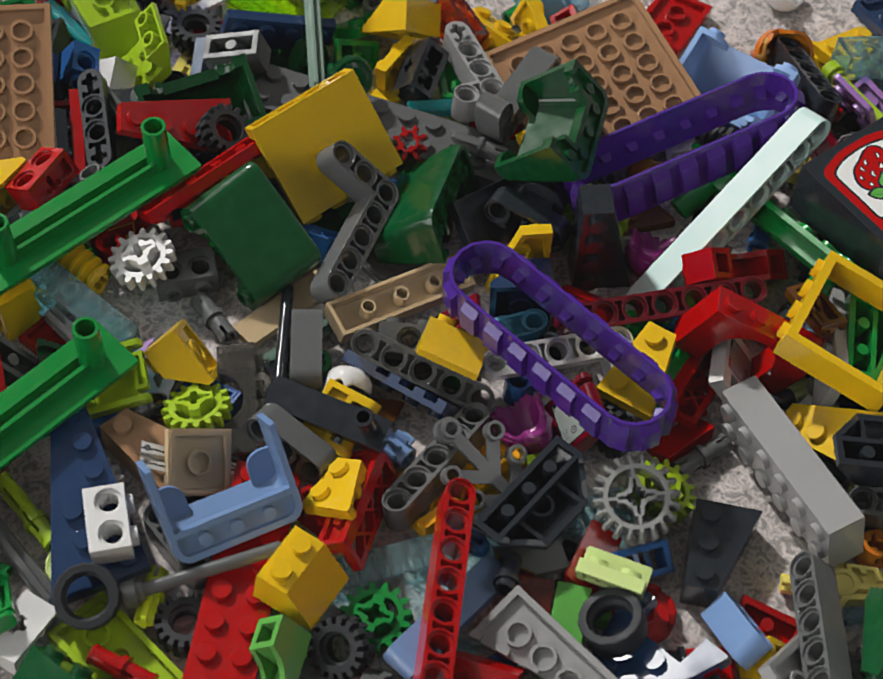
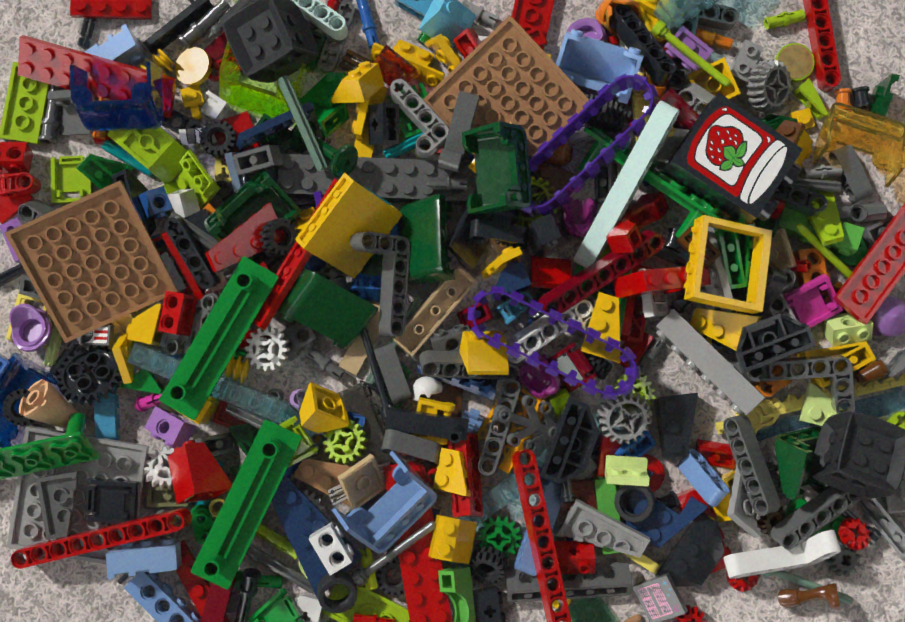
camera: 20 degrees left, 30 degrees up
(408, 136) = (397, 199): red gear -> none

